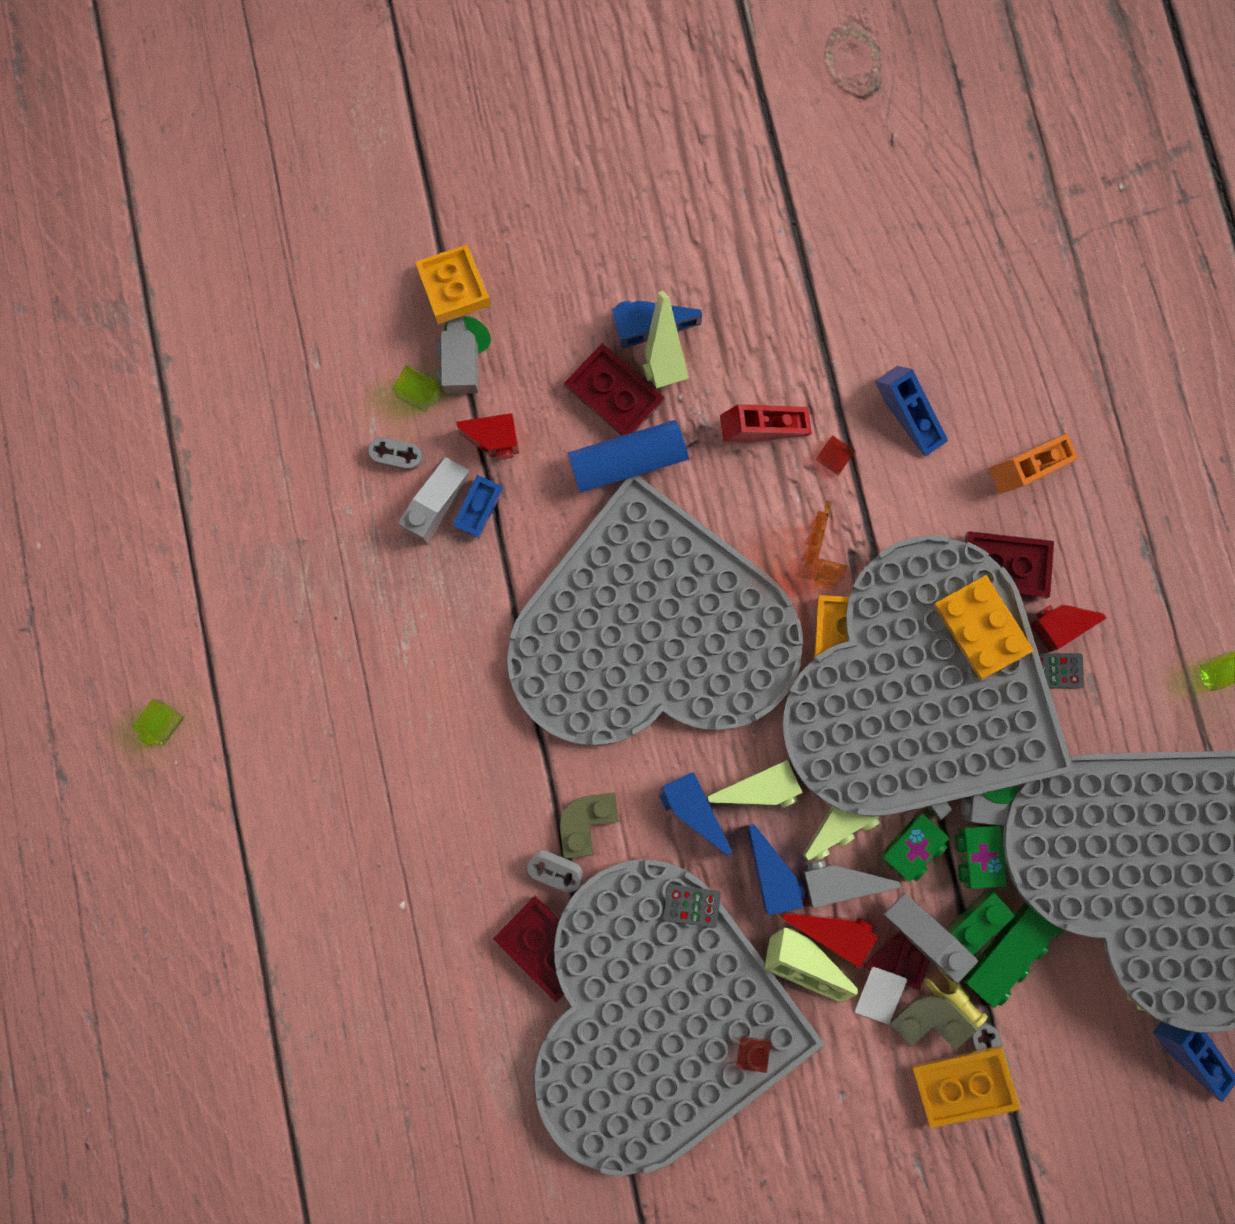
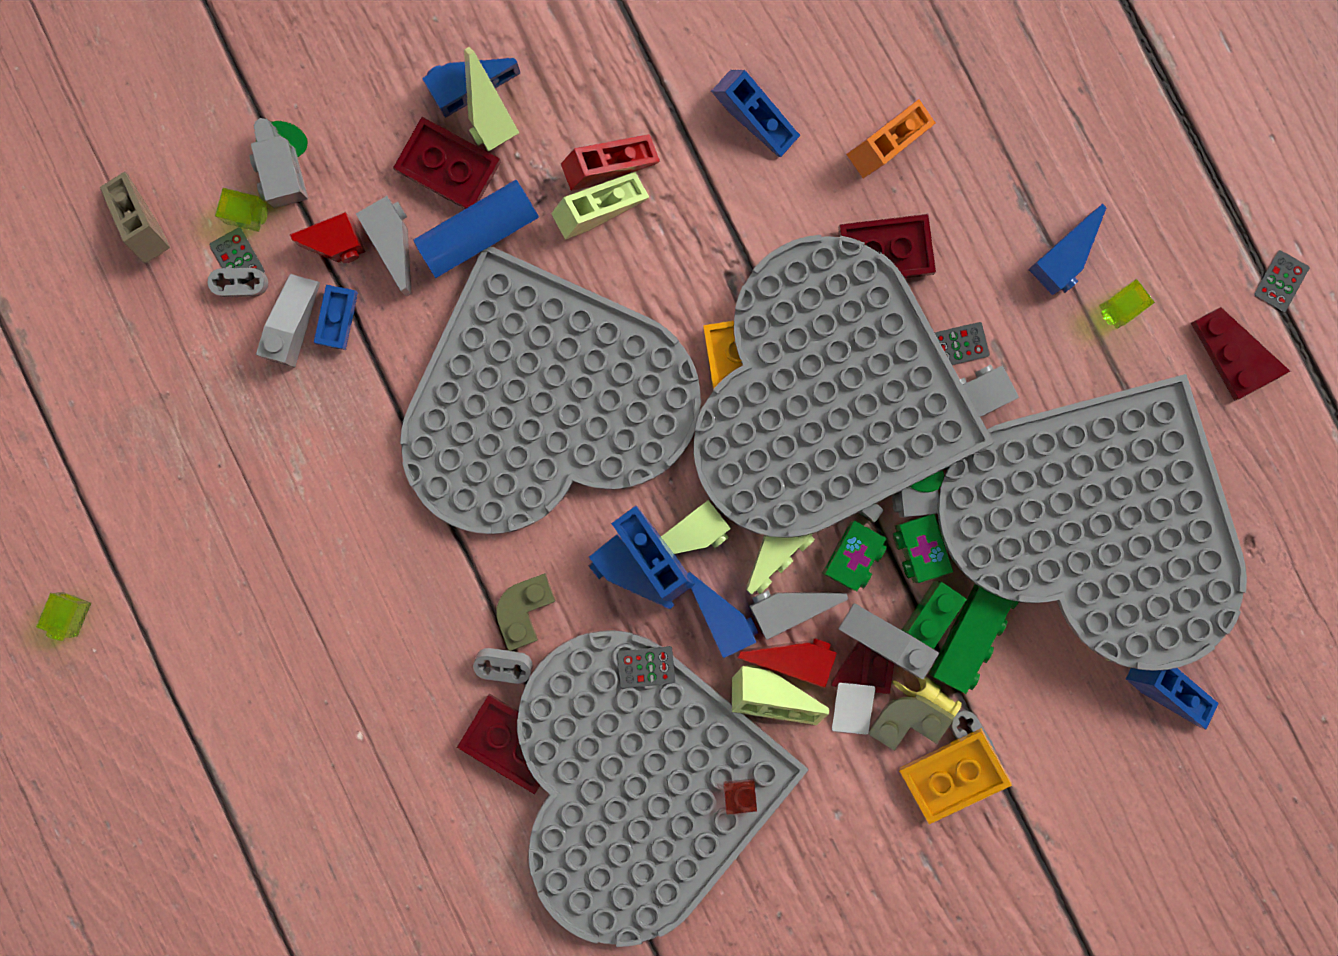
camera: 20 degrees left, 5 degrees up
(317, 373) = (134, 219): none -> dark tan slope
(400, 425) = (235, 252): none -> dark grey sticker
(453, 284) = (250, 90): light orange plate -> none
(546, 442) = (389, 235): none -> light grey slope
(724, 799) = (653, 554): none -> blue slope
(746, 460) = (598, 204): none -> yellowish green slope
(821, 571) = (701, 301): clear orange plate -> none
(835, 455) = (689, 177): clear red tile -> none
(983, 628) = (874, 319): light orange plate -> none
(1063, 624) = (956, 296): red slope -> none
(1080, 719) = (990, 389): none -> light grey hinge
(1180, 612) = (1068, 257): none -> blue slope

